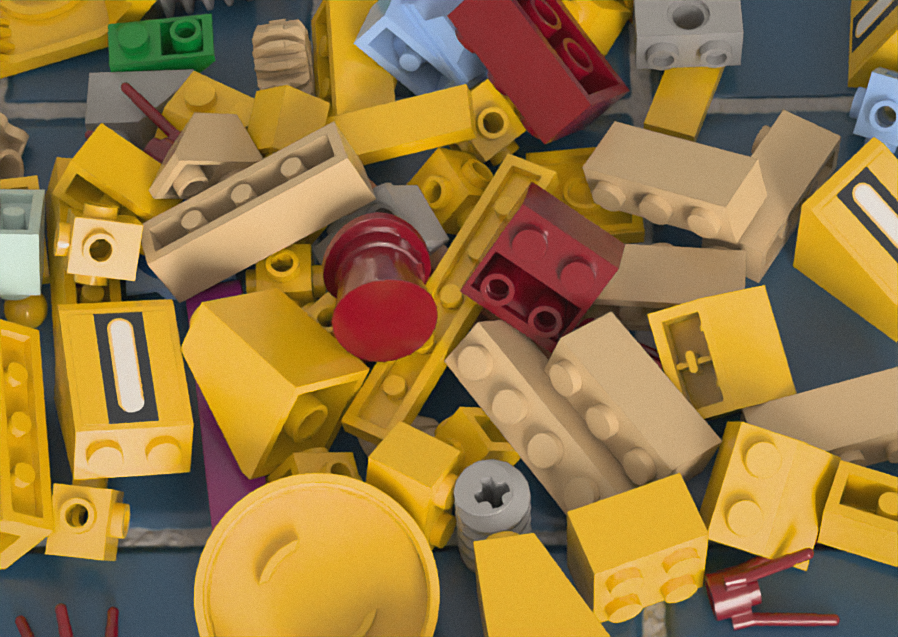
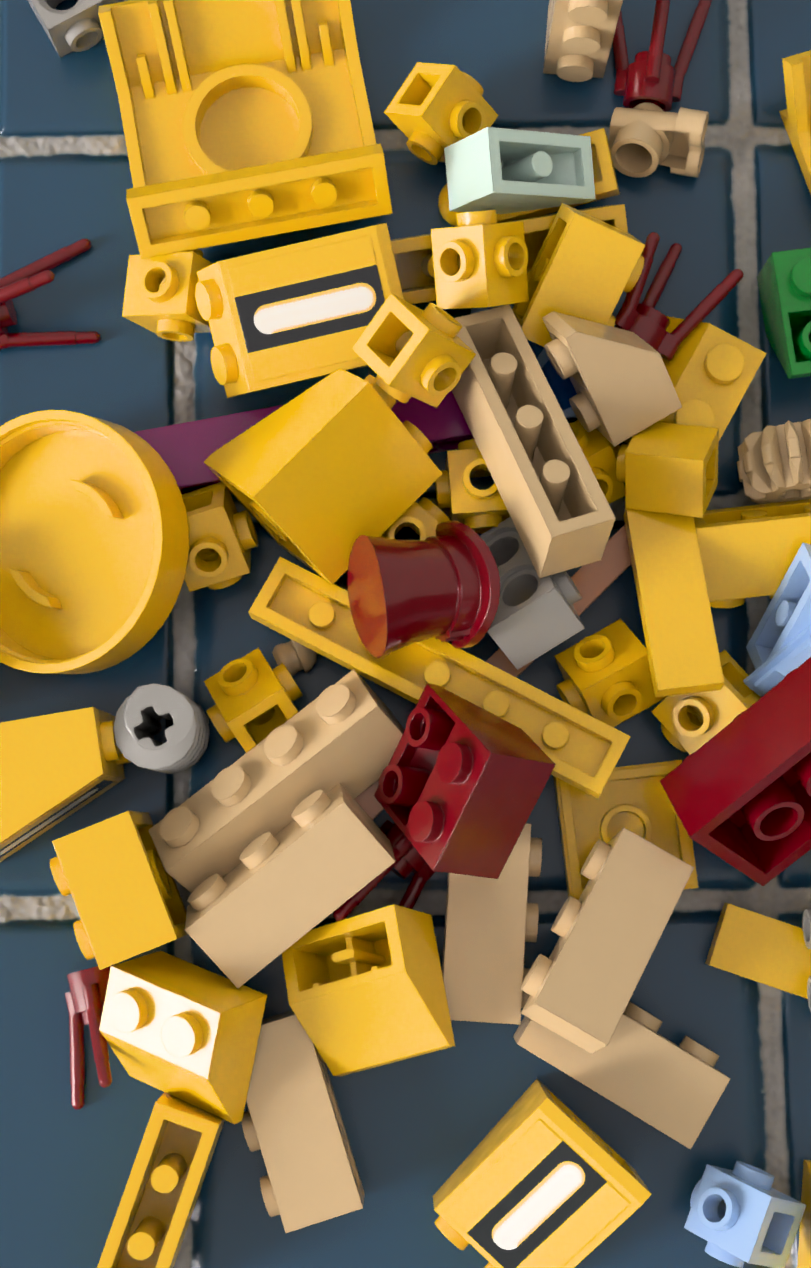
camera: 85 degrees right, 25 degrees up
(115, 110) = (748, 306): light grey slope -> none
(158, 279) = (414, 351): none -> yellow brick
(420, 477) = (194, 641): yellow brick -> none

